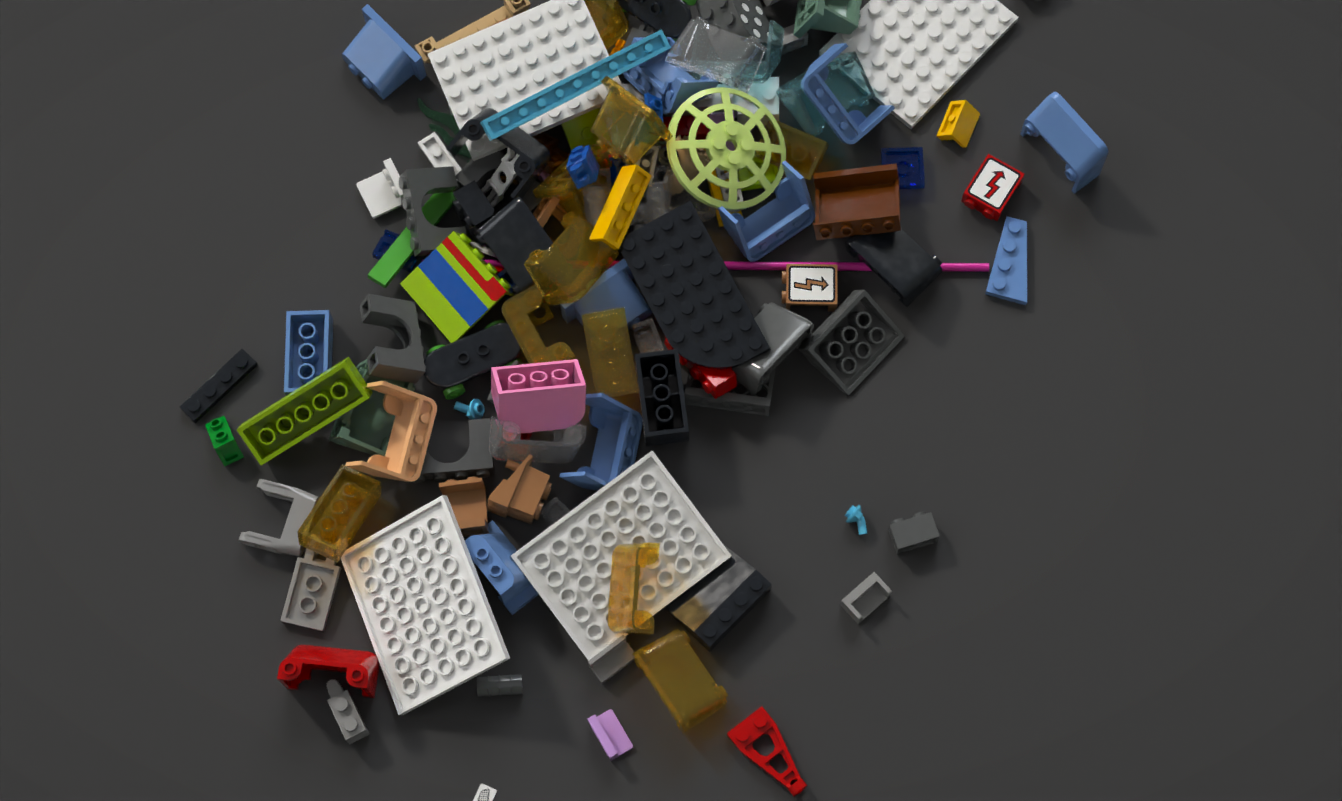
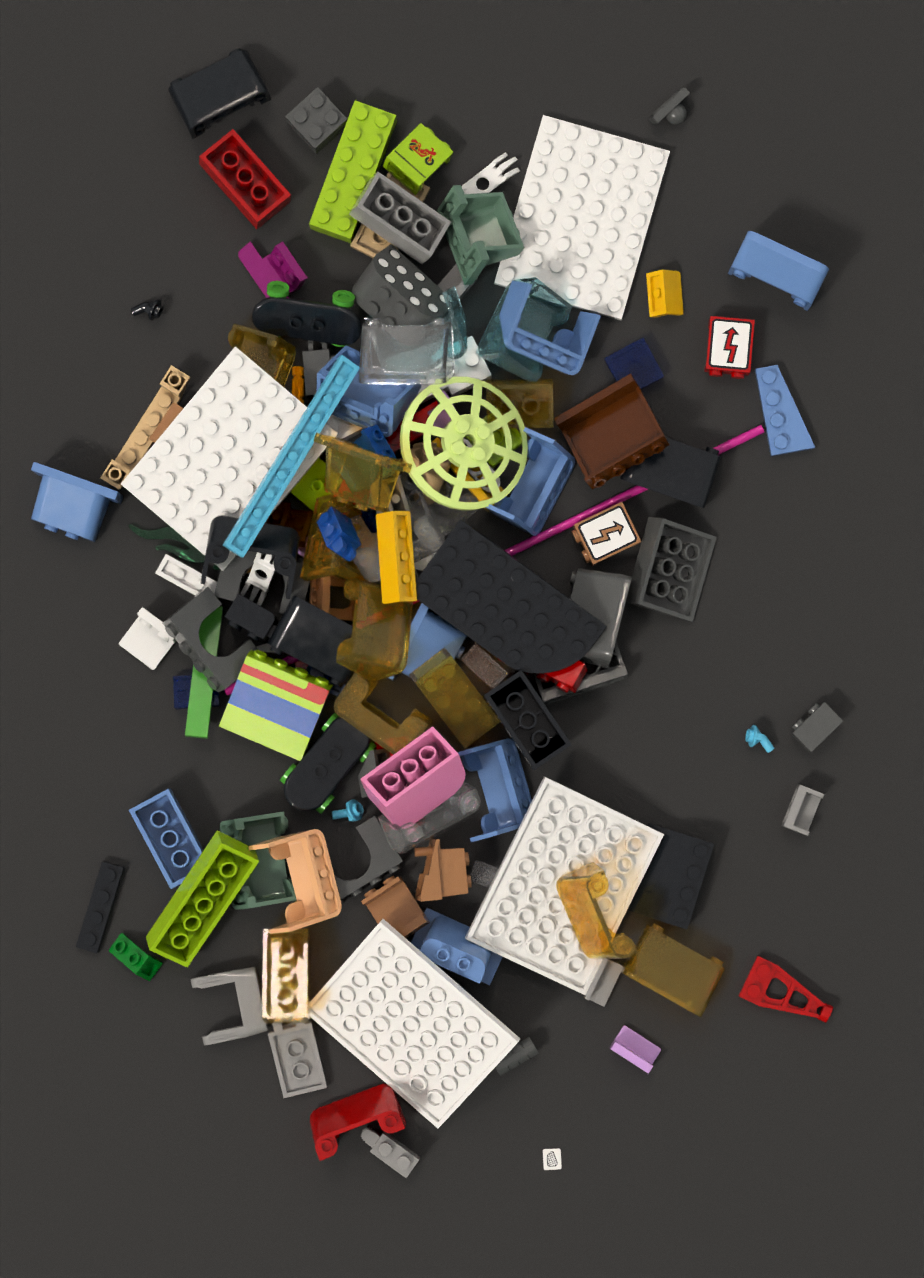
camera: 25 degrees left, 15 degrees up
(402, 319) = (240, 760): dark grey arch -> none

